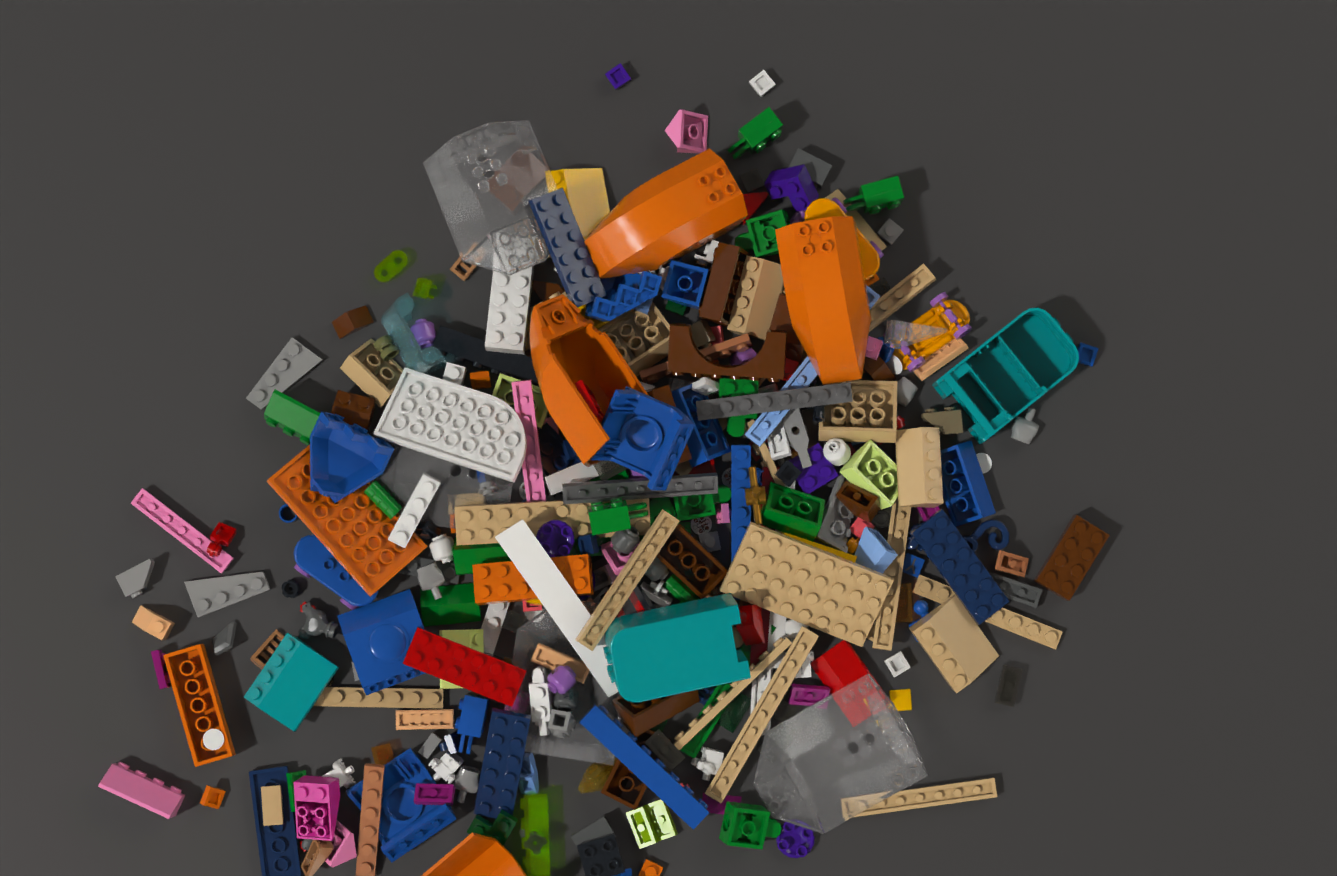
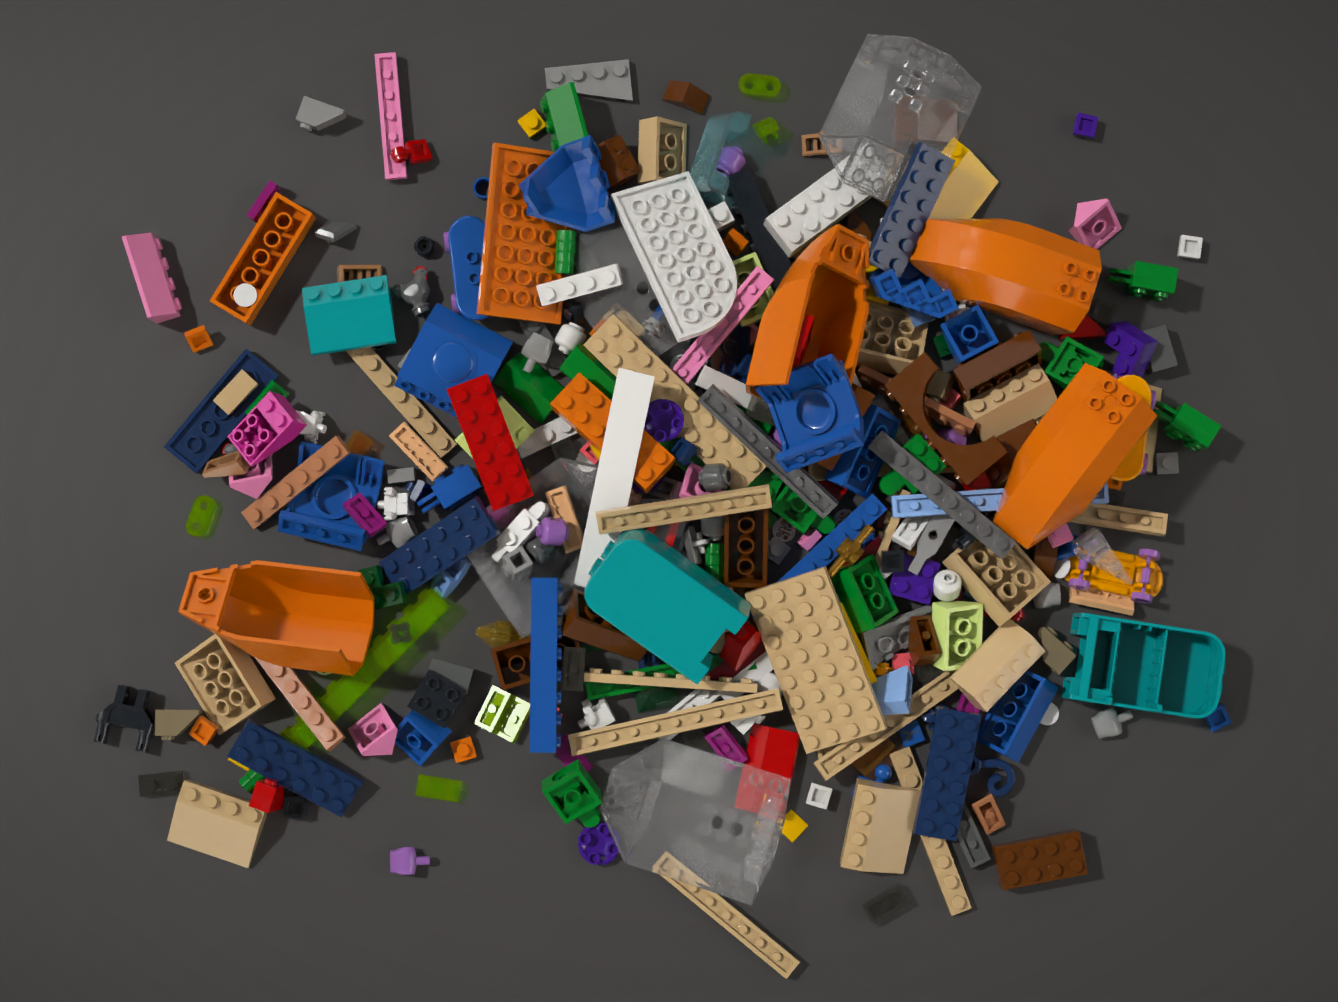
camera: 45 degrees right, 0 degrees up
(153, 623) = (295, 162): light nougat slope -> none
(221, 592) = (368, 192): light grey wing -> none
(275, 441) = (532, 123): none -> yellow plate
(386, 348) = (690, 141): olive wheel -> none
(613, 515) = (725, 448): green brick -> none
(705, 386) = (901, 428): white plate -> none
(709, 251) = (1003, 336): white bracket -> none

